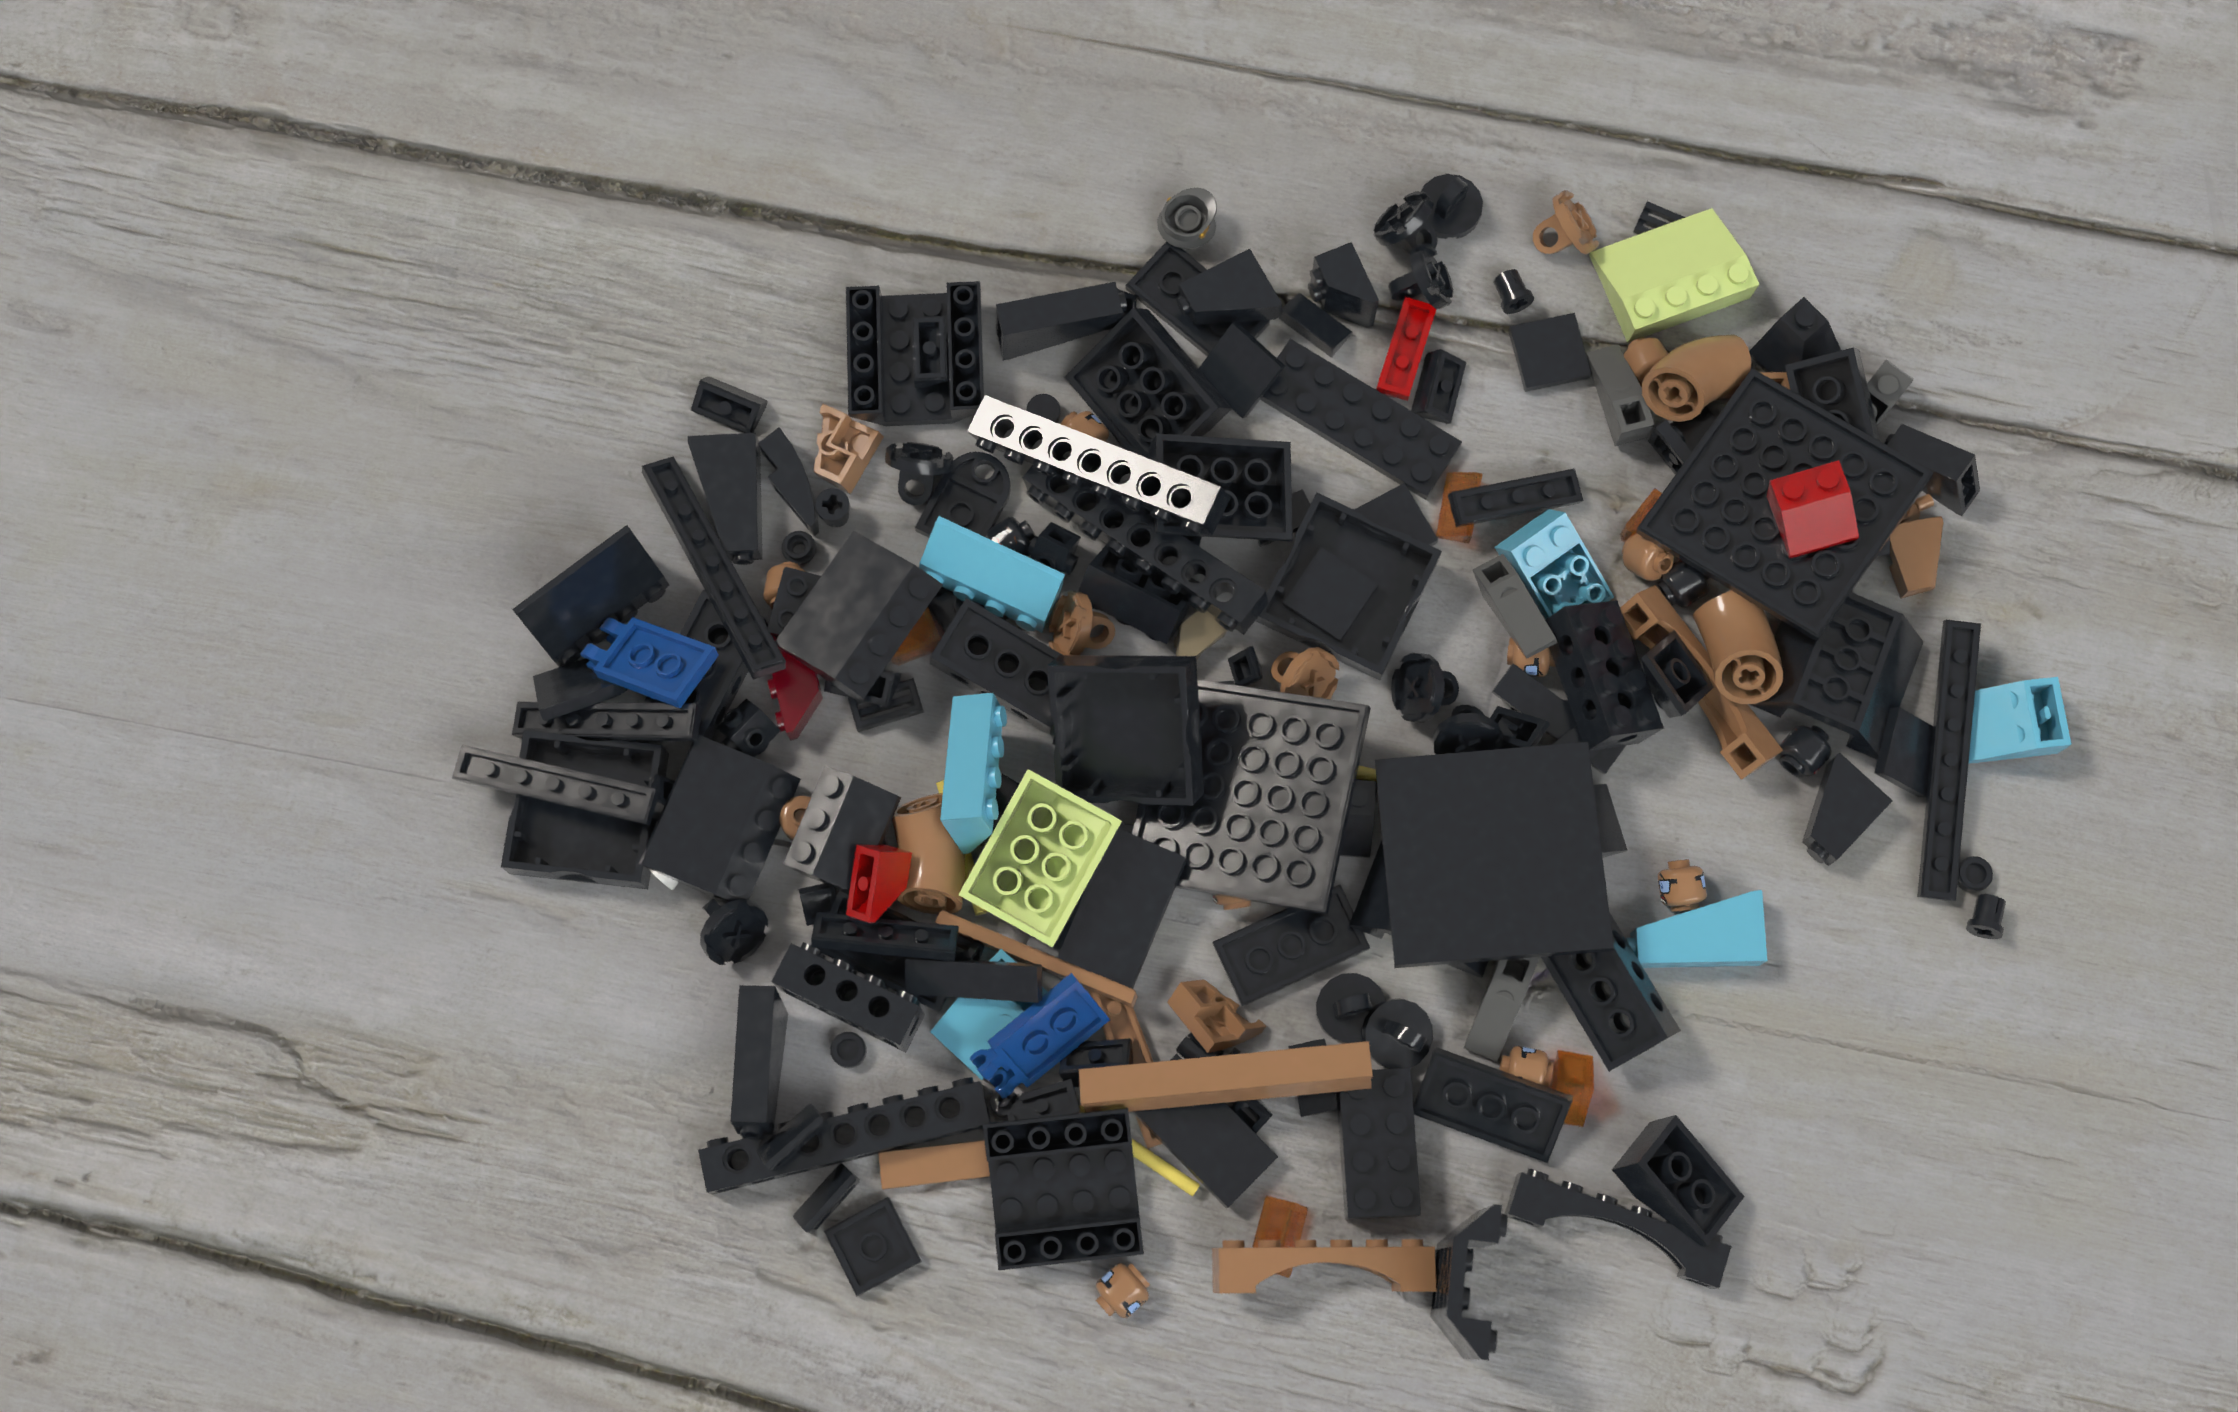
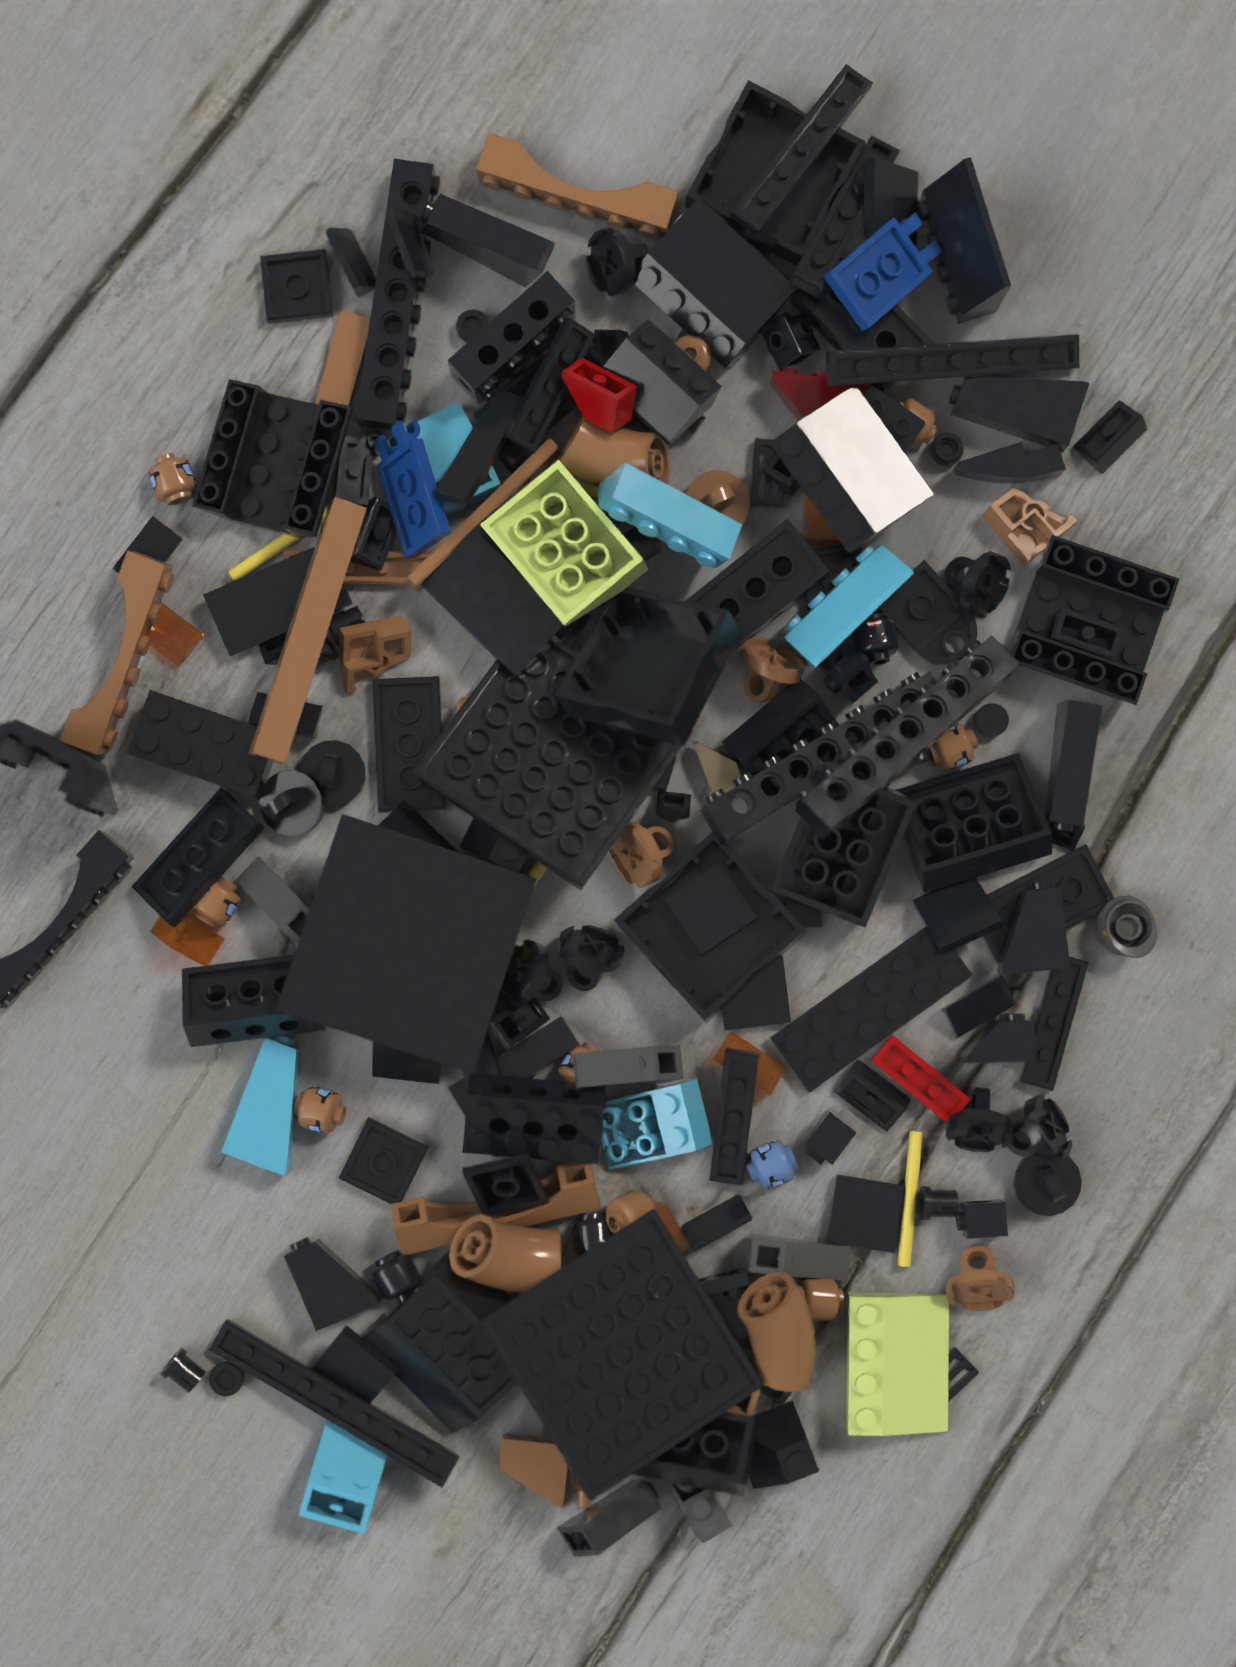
camera: 105 degrees right, 10 degrees up
(670, 1073) = (641, 207): none -> medium nougat arch
(825, 503) = (980, 490): black bush -> none
(926, 741) = (722, 493): none -> medium nougat tile
(1196, 1283) = (154, 541): none -> black slope
(1298, 253) = (1054, 1023): none -> black tile
(1497, 407) = (828, 1139): none -> black brick
(1508, 245) = (982, 1219): none -> black brick
(1517, 318) = (910, 1198): none -> light yellow bar
(1543, 448) = (772, 1164): none -> medium blue head
(1619, 477) = (716, 1222): none -> black slope
(1678, 1179) = (66, 989): black slope -> none
(1702, 808) = (383, 1162): none -> black tile
(1813, 509) = (598, 1371): red slope -> none

